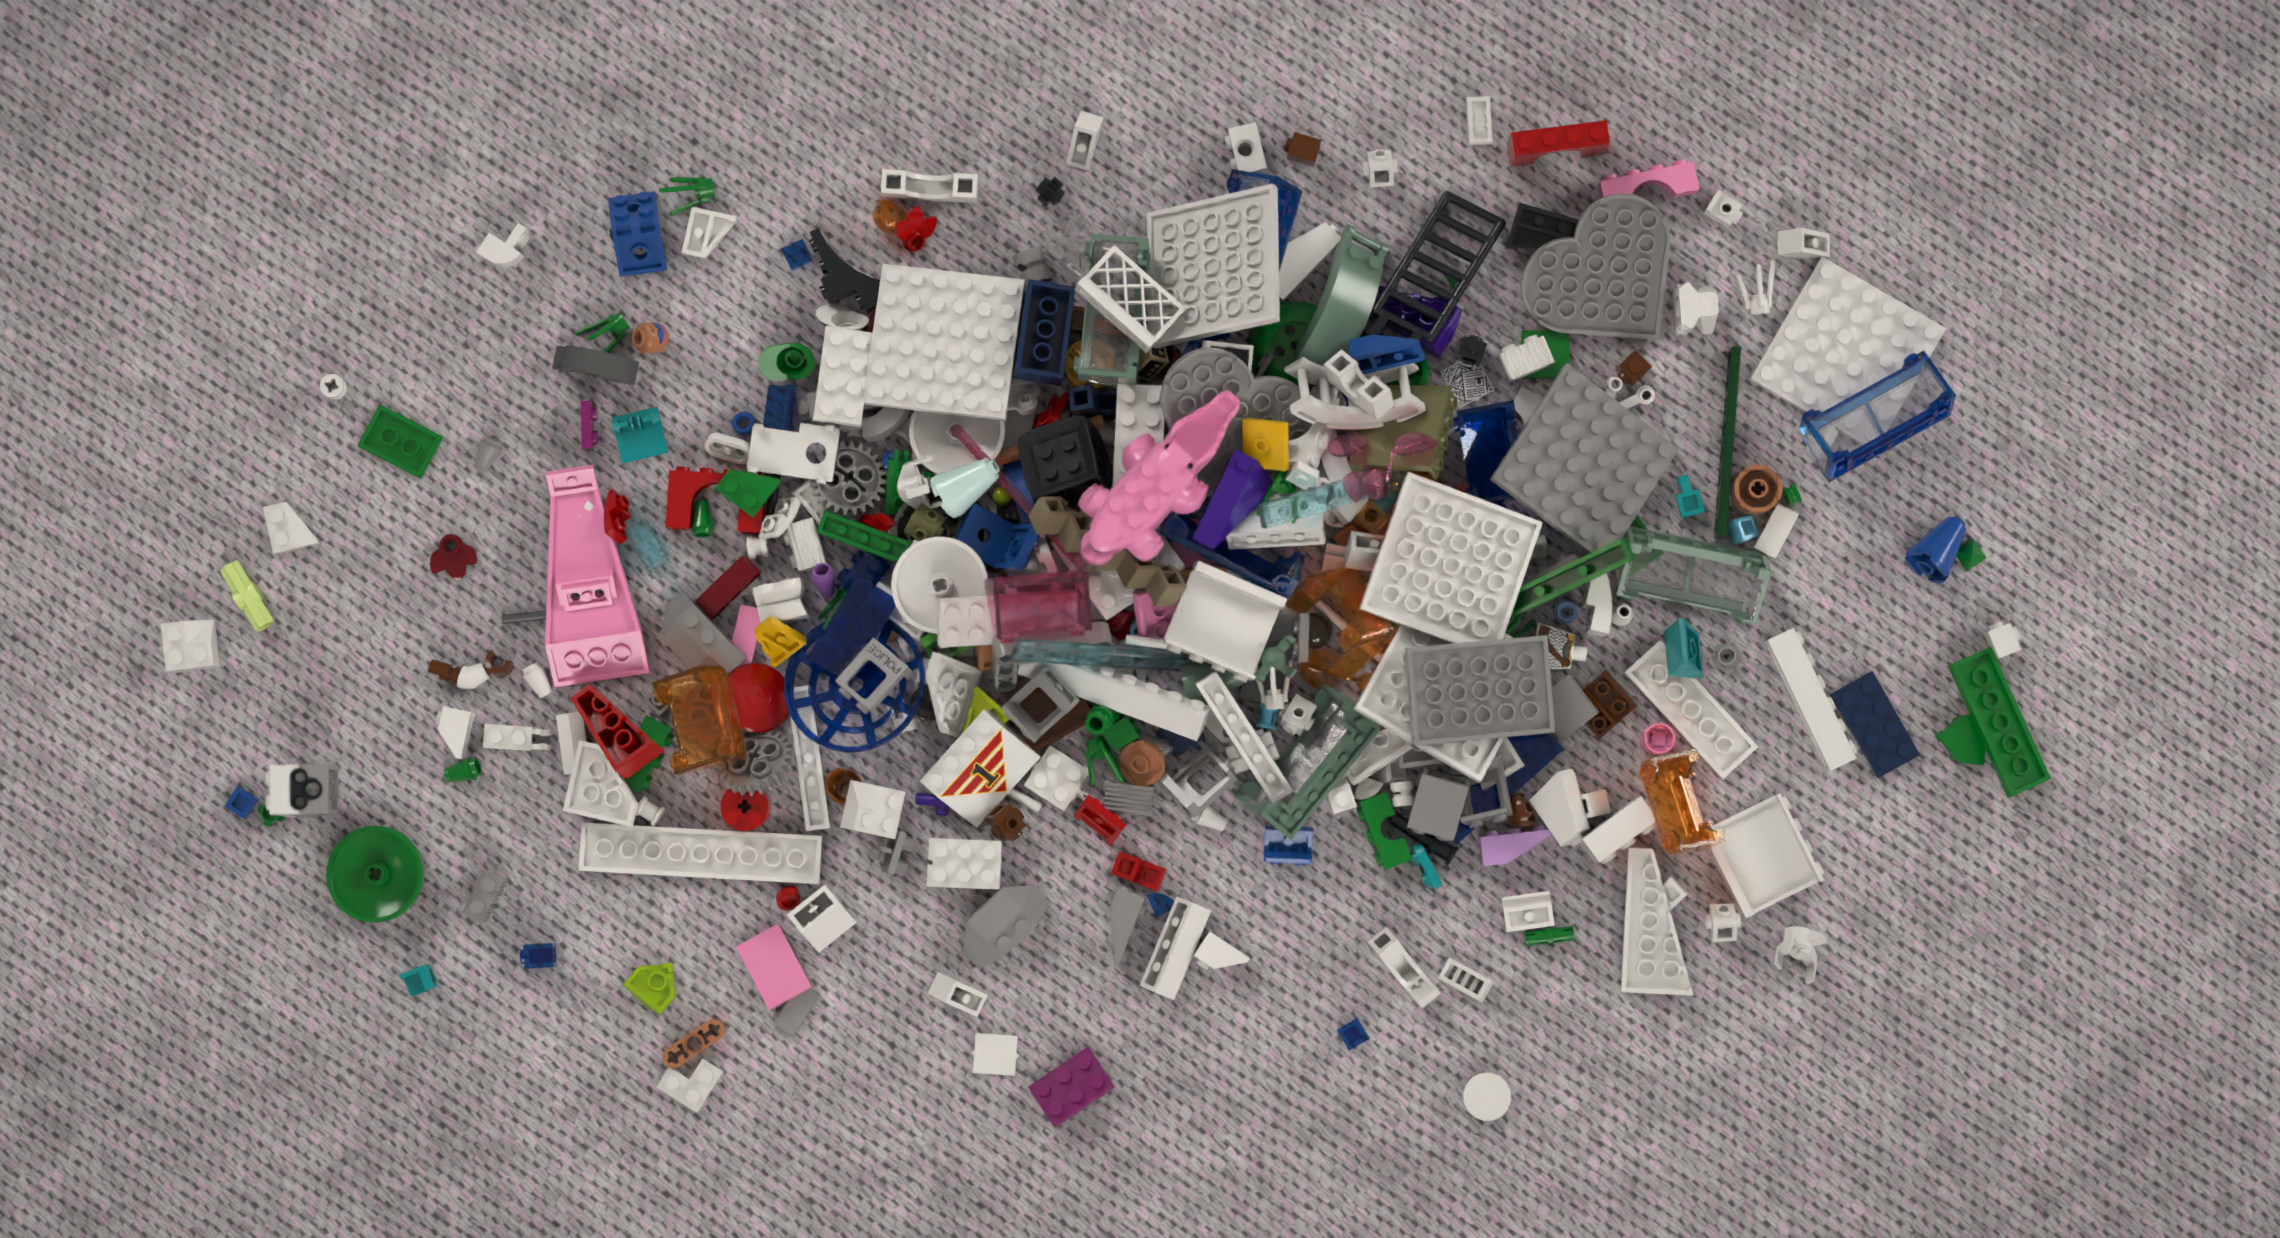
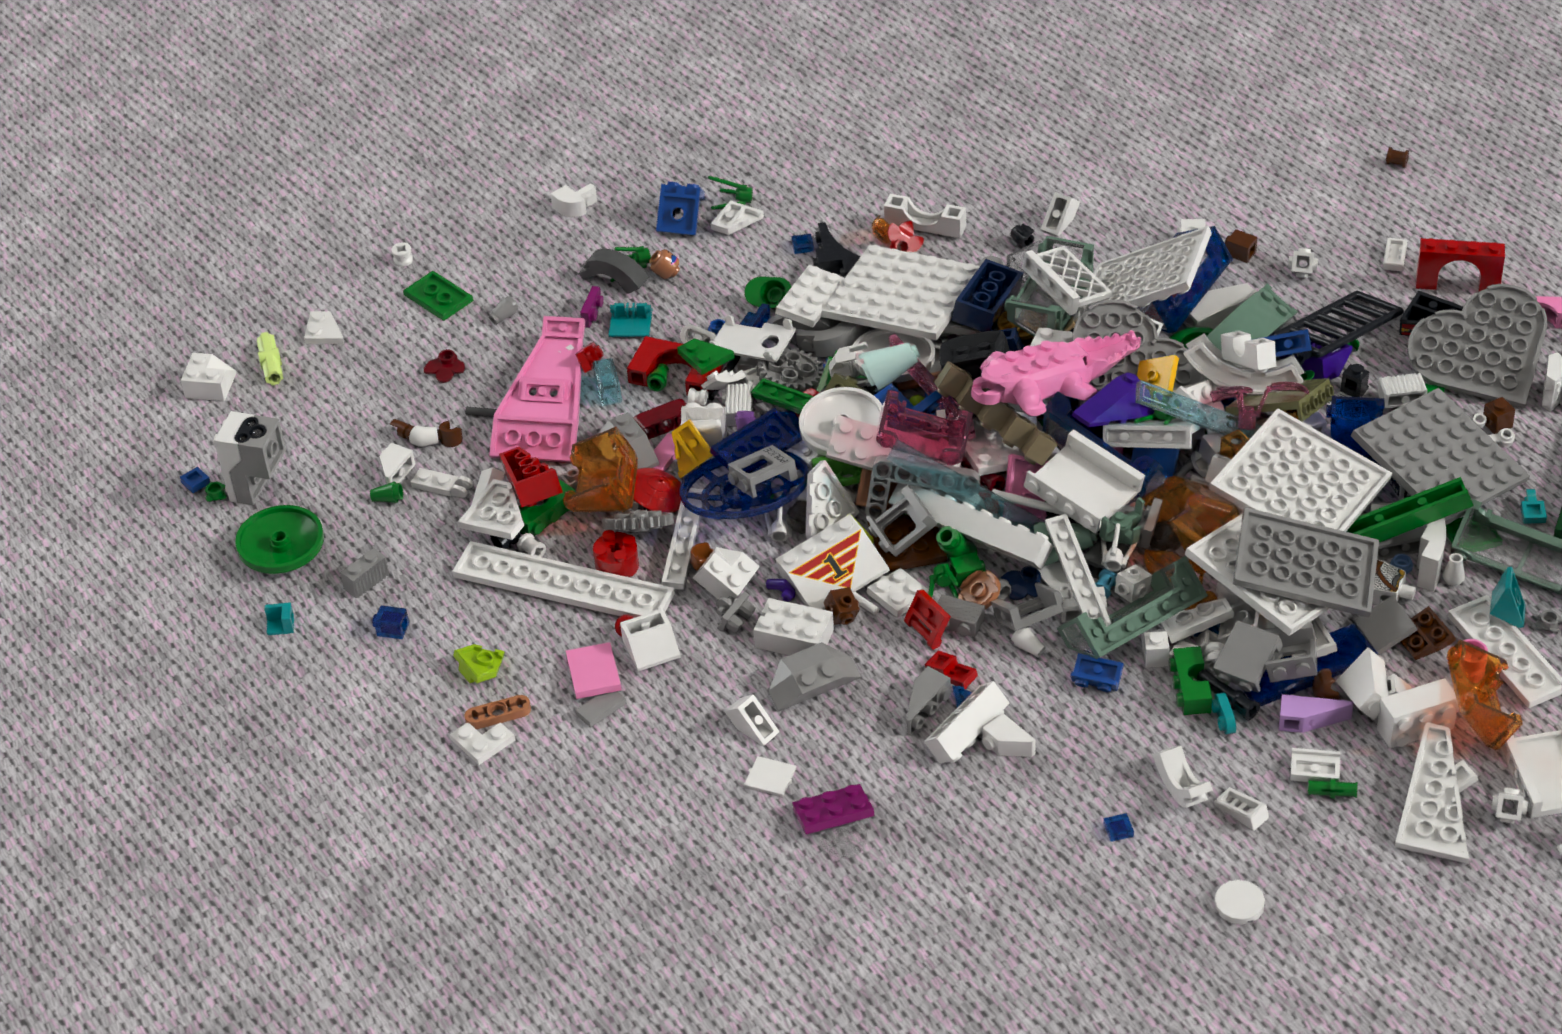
camera: 15 degrees right, 40 degrees down
(537, 679) = (476, 445): white cone -> none

